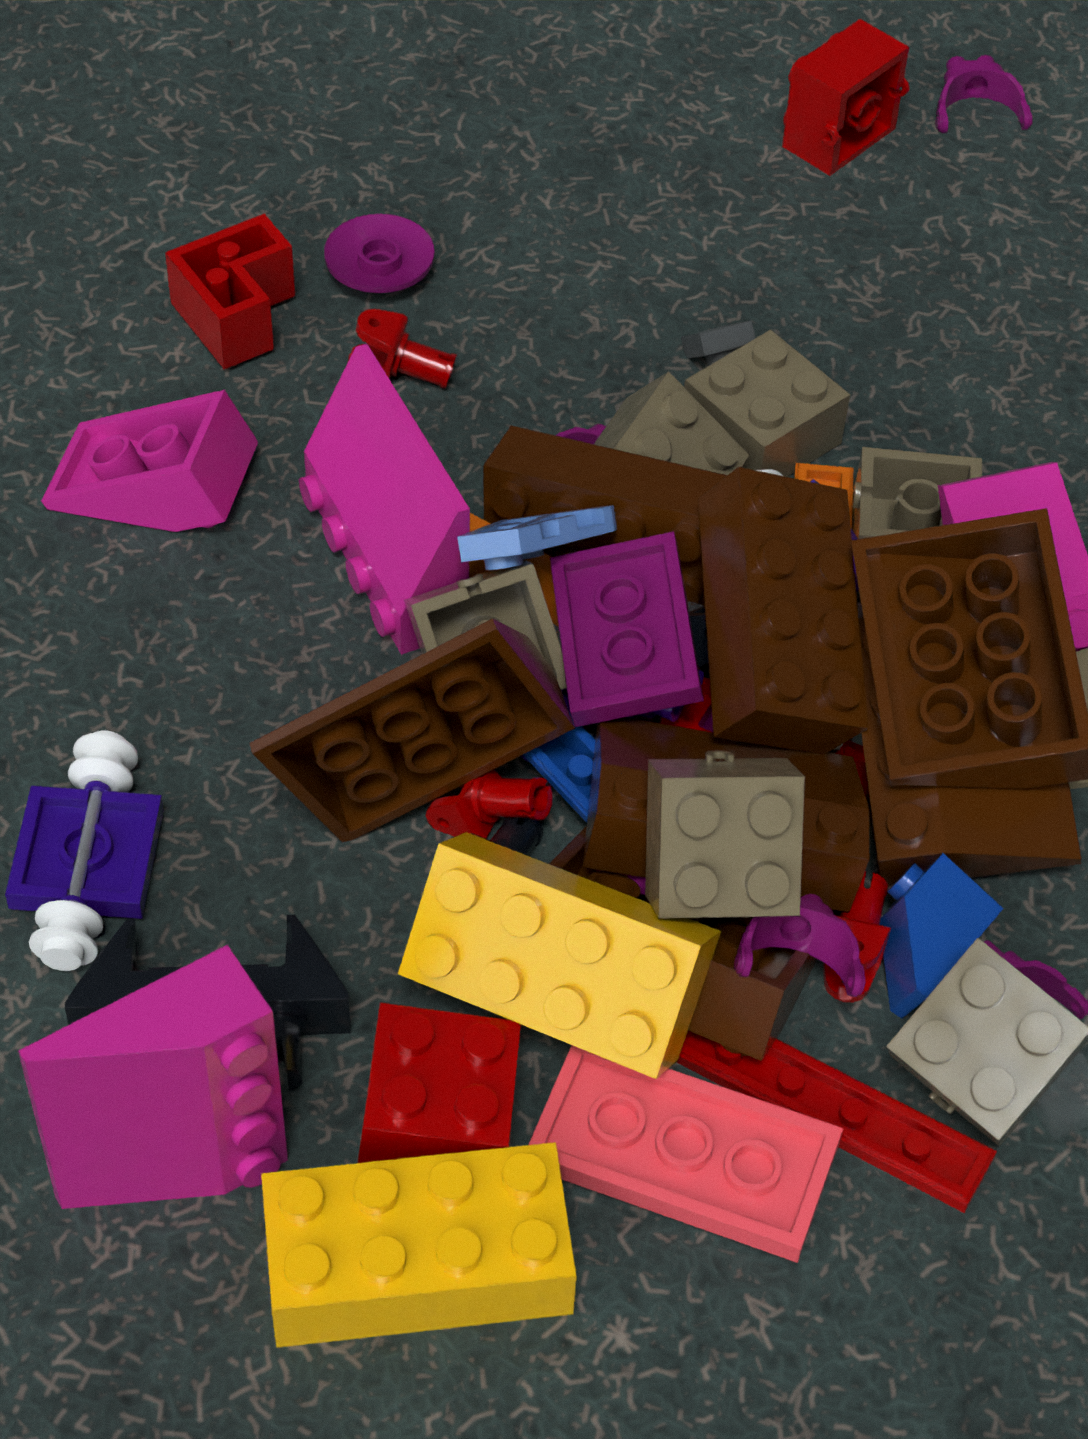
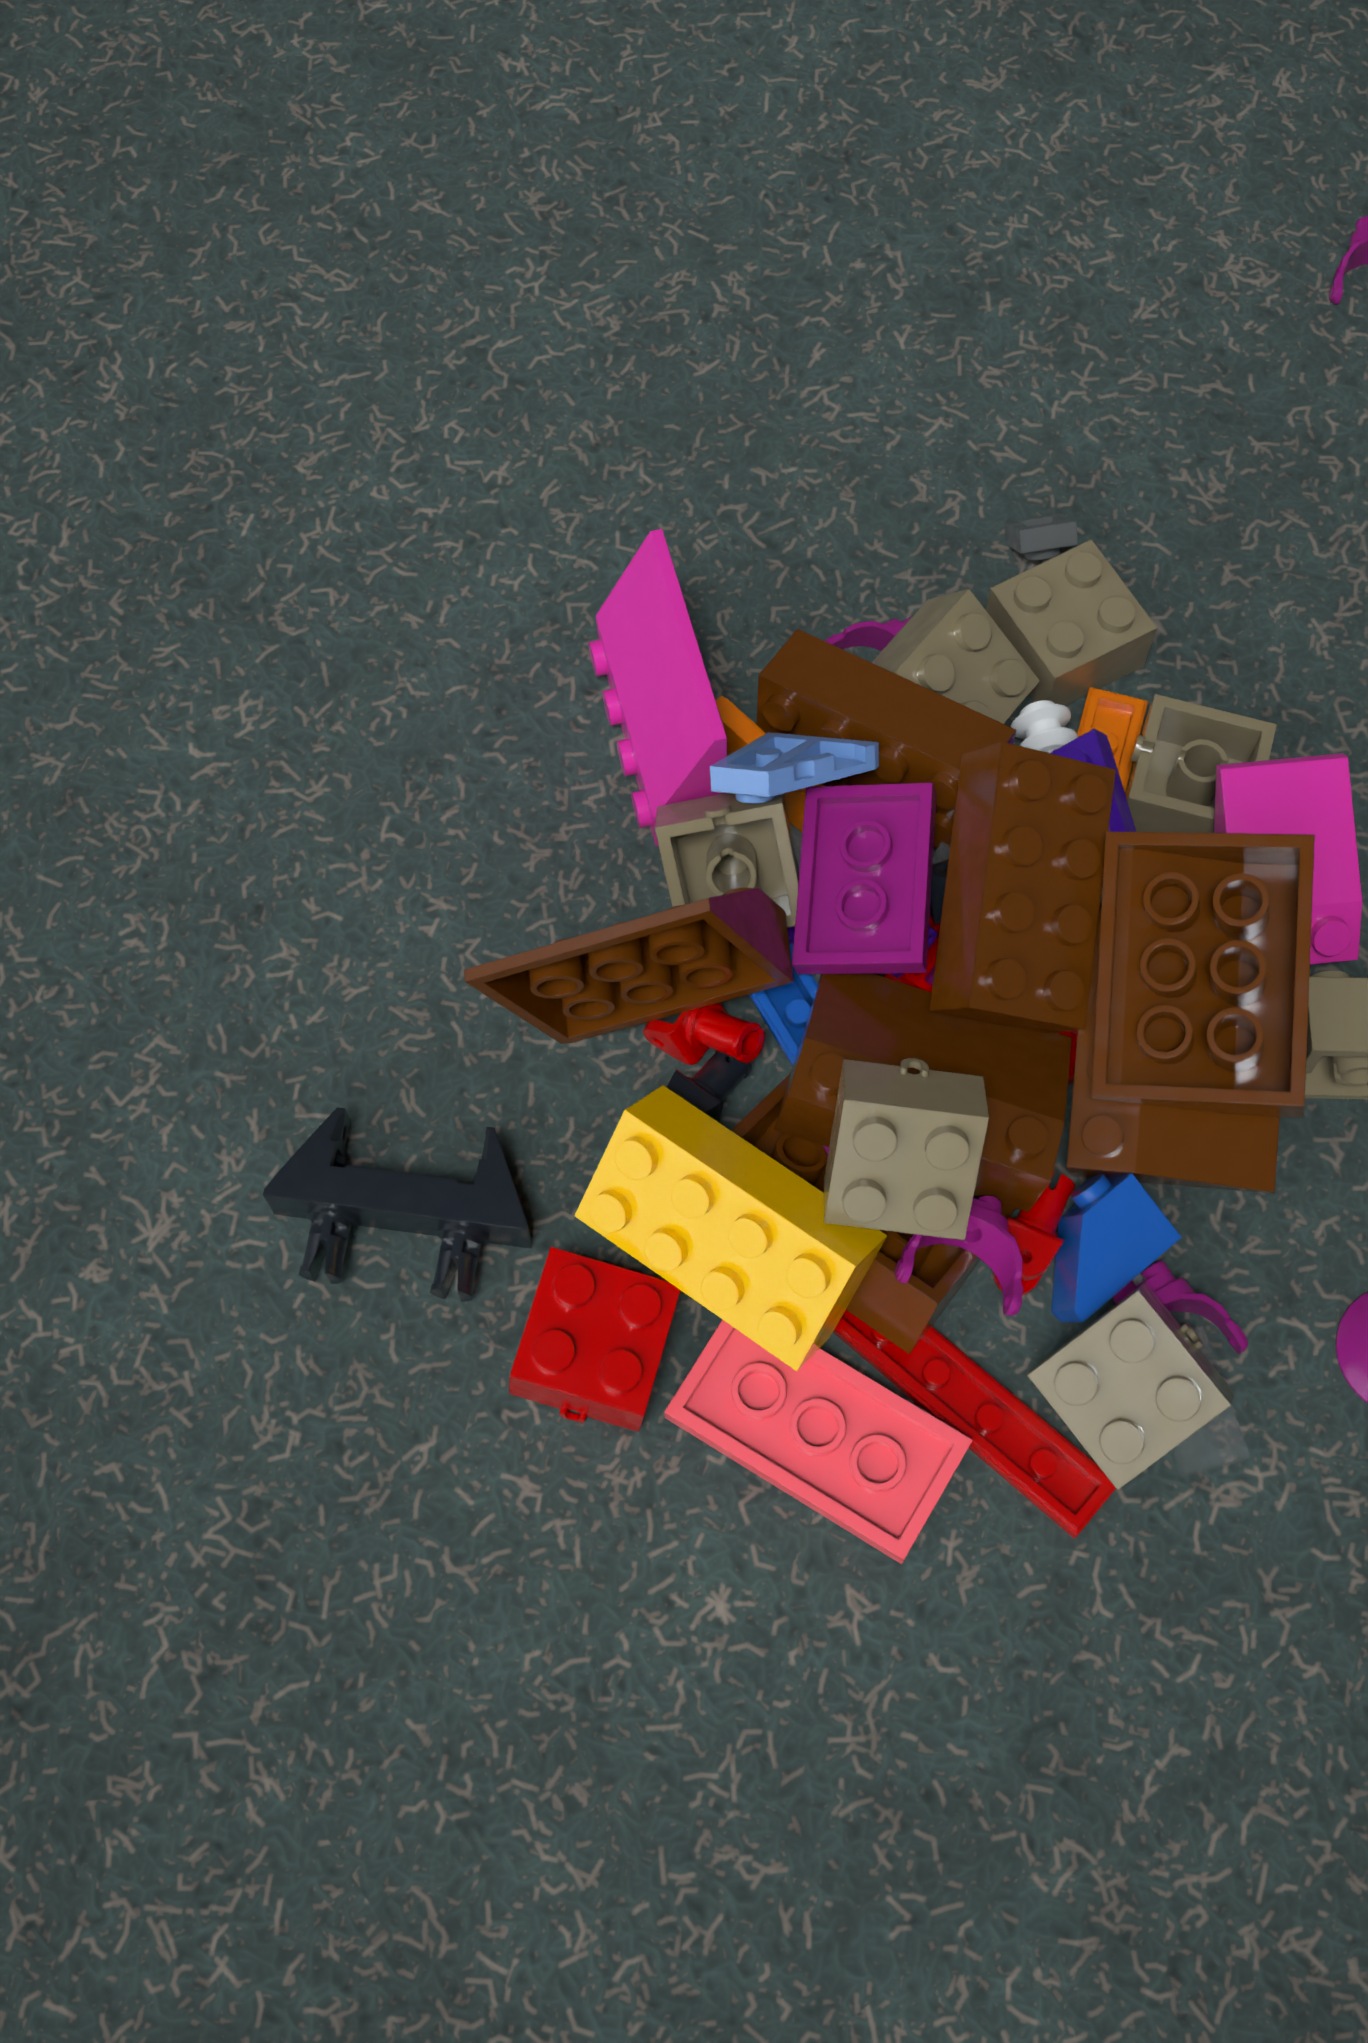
camera: 15 degrees right, 15 degrees up
(85, 851) = (316, 1021): dark purple plate -> none
(156, 465) = (454, 605): dark pink slope -> none
(162, 1091) = (322, 1319): dark pink slope -> none
(228, 287) = (557, 406): red brick -> none
(379, 253) = (712, 370): magenta dish -> none
(391, 346) = (710, 506): red piece -> none
(417, 1244) = (543, 1488): yellow brick -> none
(844, 96) = (1234, 257): red brick -> none

